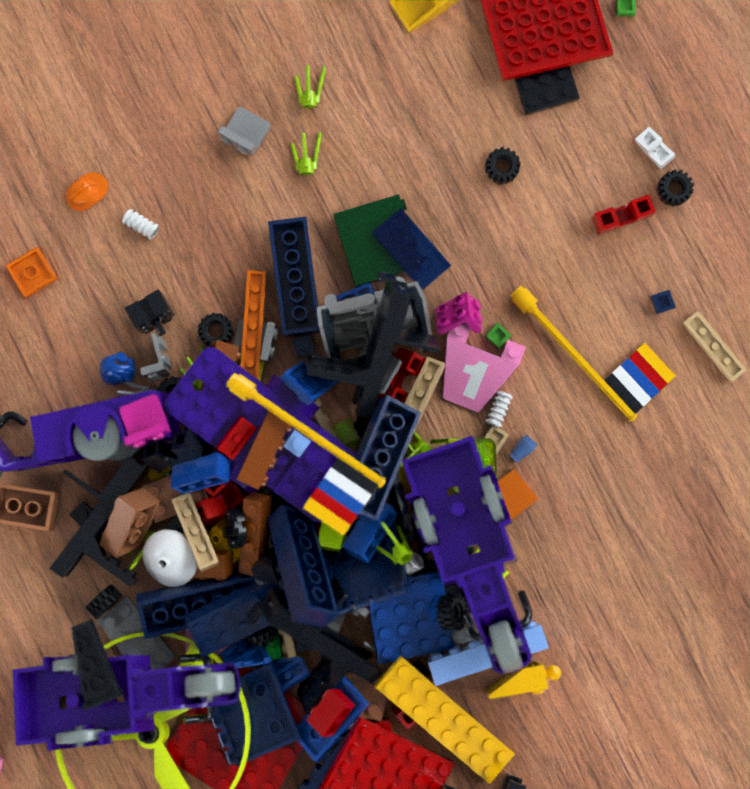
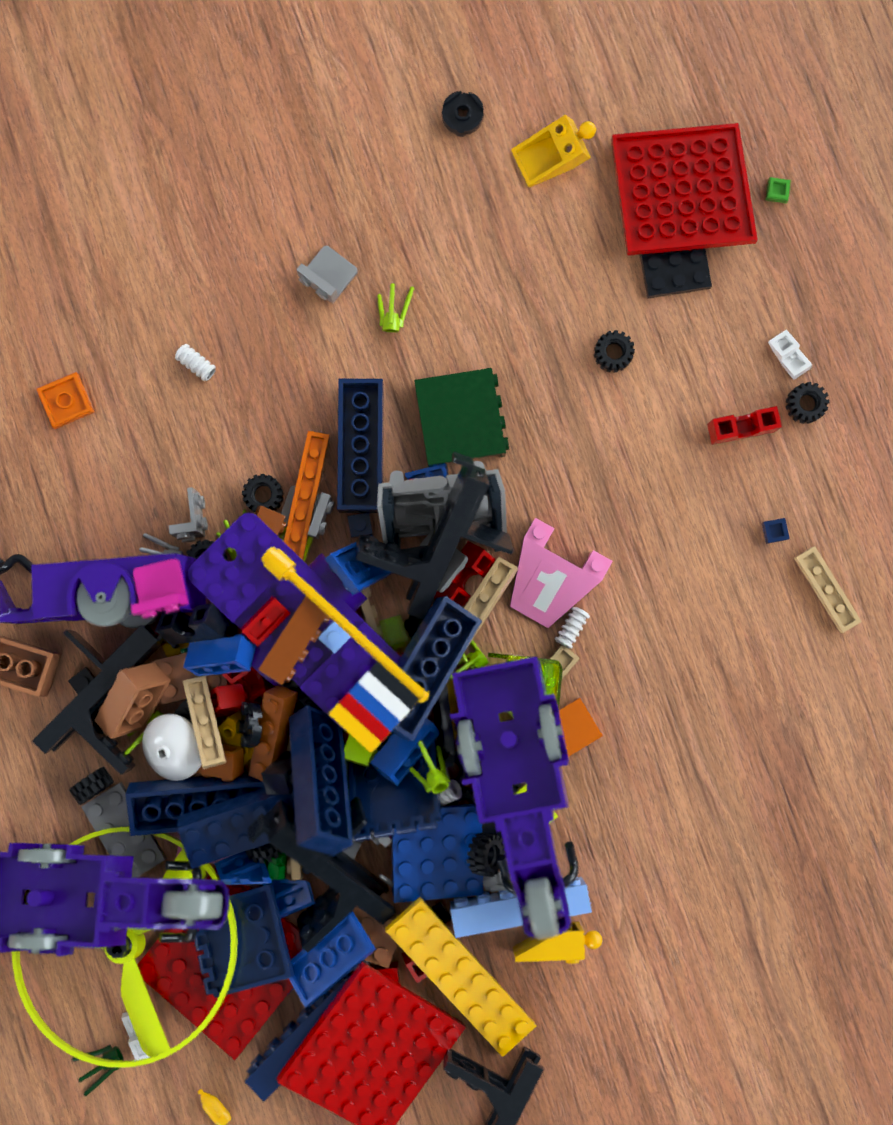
camera: 10 degrees right, 0 degrees up
(86, 191) = (140, 317): orange piece -> none
(95, 670) = (65, 872): black wing -> none
(116, 374) = (142, 528): blue hair -> none
(150, 313) = (191, 463): black brick -> none
(308, 98) = (405, 247): lime plant -> none
(330, 712) = (329, 953): red brick -> none
(411, 249) = (497, 432): clear blue tile -> none
(459, 311) = (541, 510): dark pink bracket -> none
(498, 336) = (582, 544): bright green tile -> none
(523, 448) = (593, 676): medium blue cone -> none
(629, 384) = (724, 620): flag -> none

